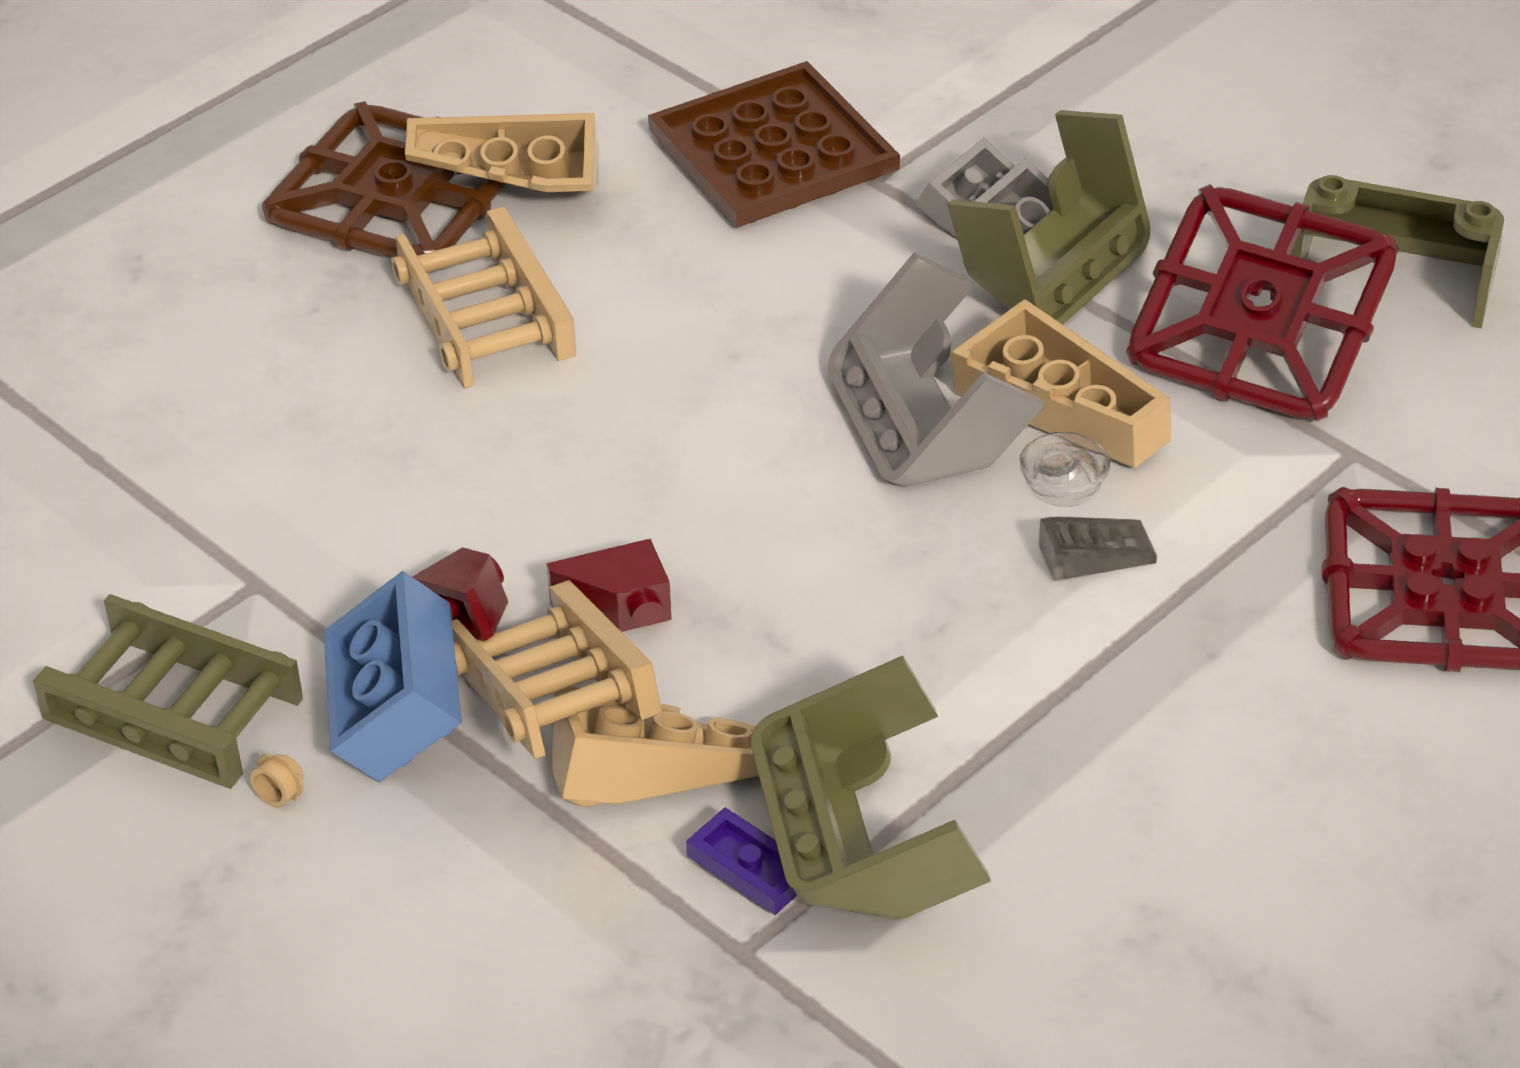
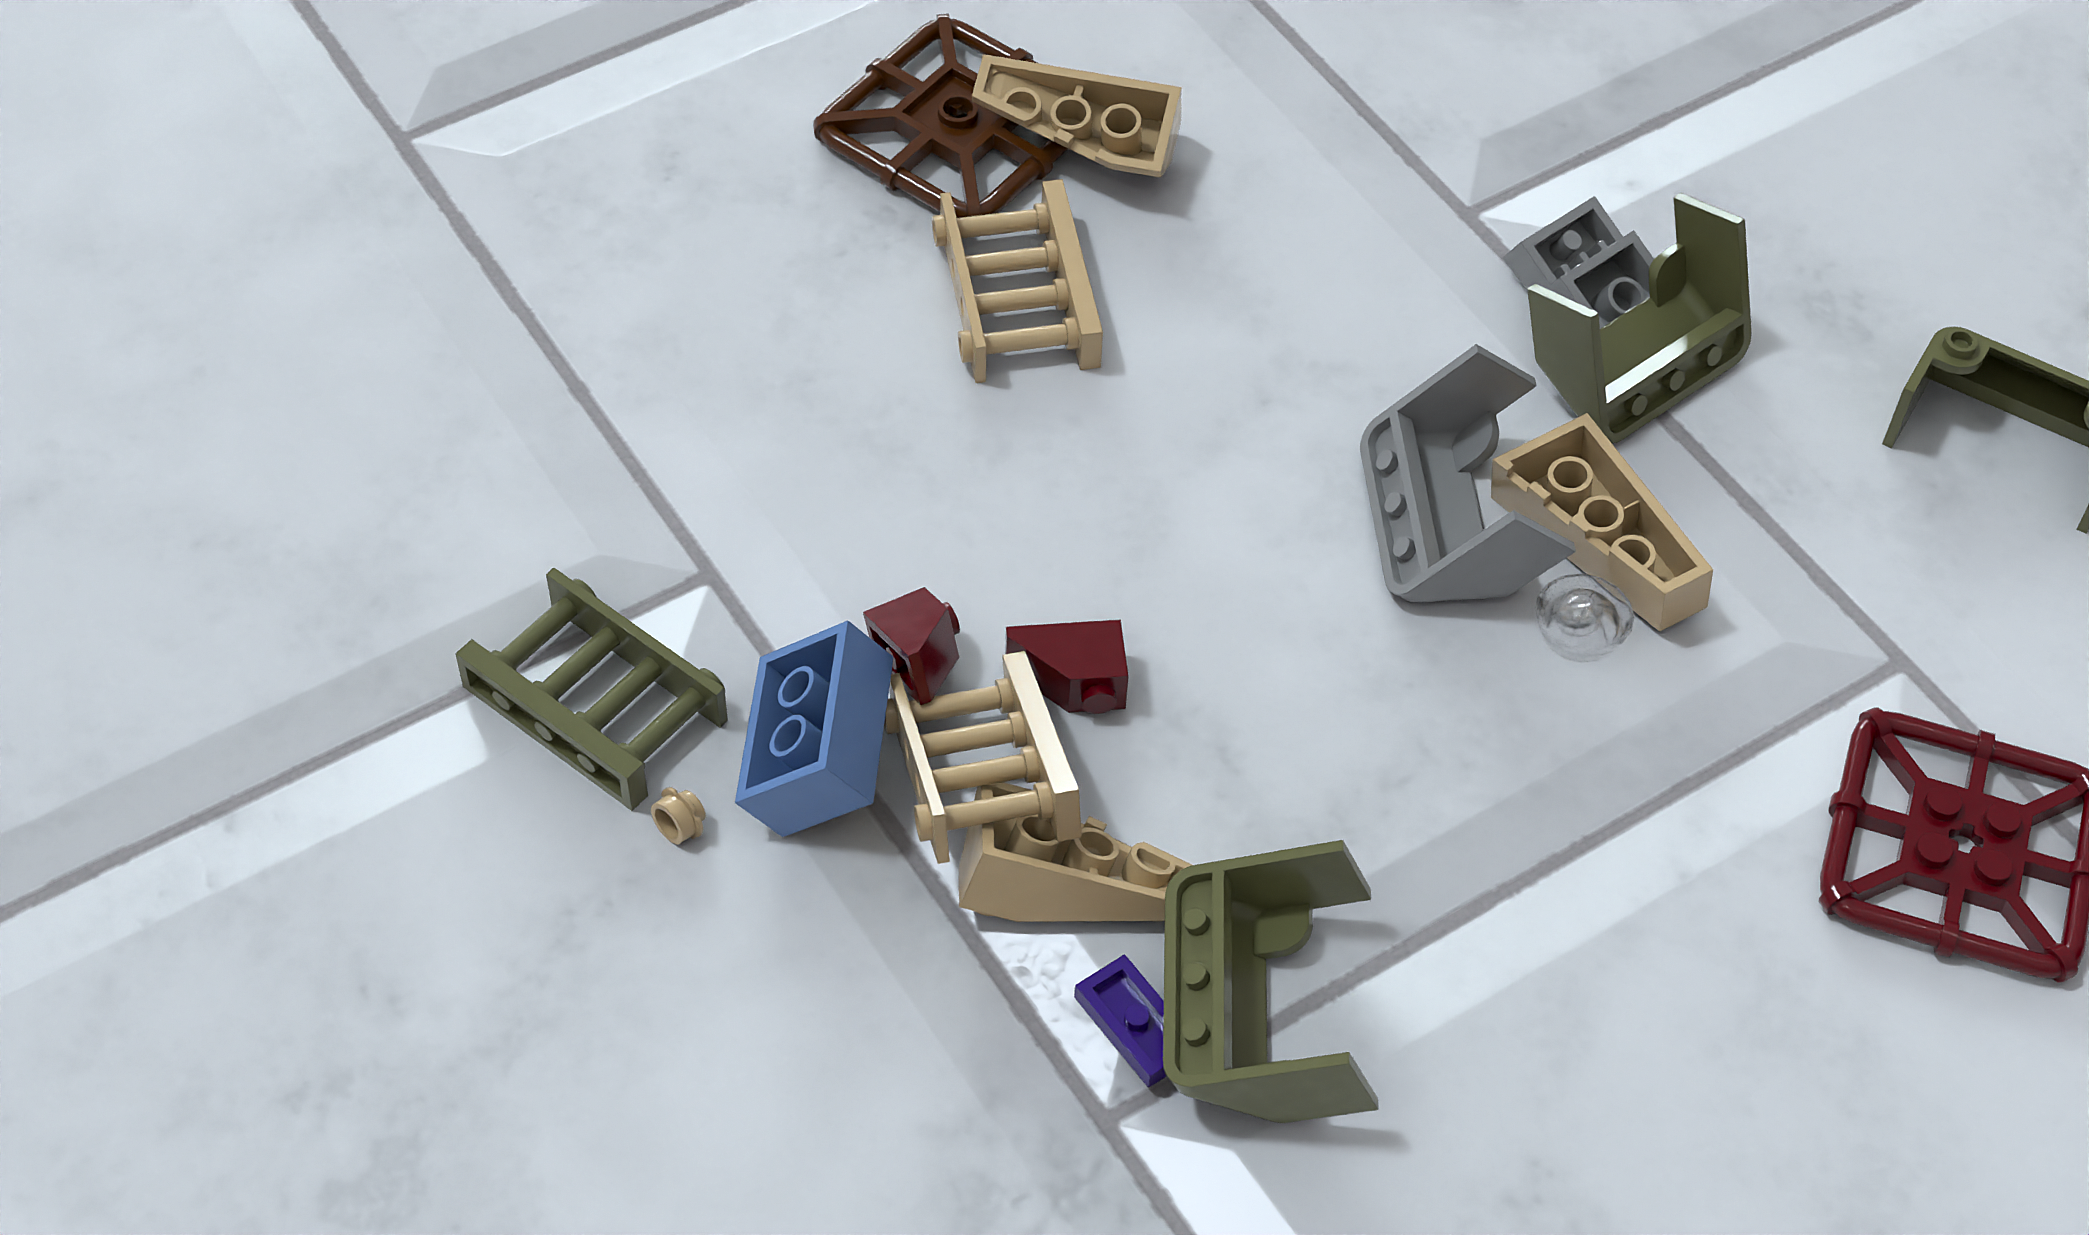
camera: 10 degrees right, 10 degrees up
(773, 143) = (1369, 150): reddish brown plate -> none
(1079, 546) = (1576, 735): clear smoke slope -> none
(1272, 328) = (1857, 497): dark red plate -> none

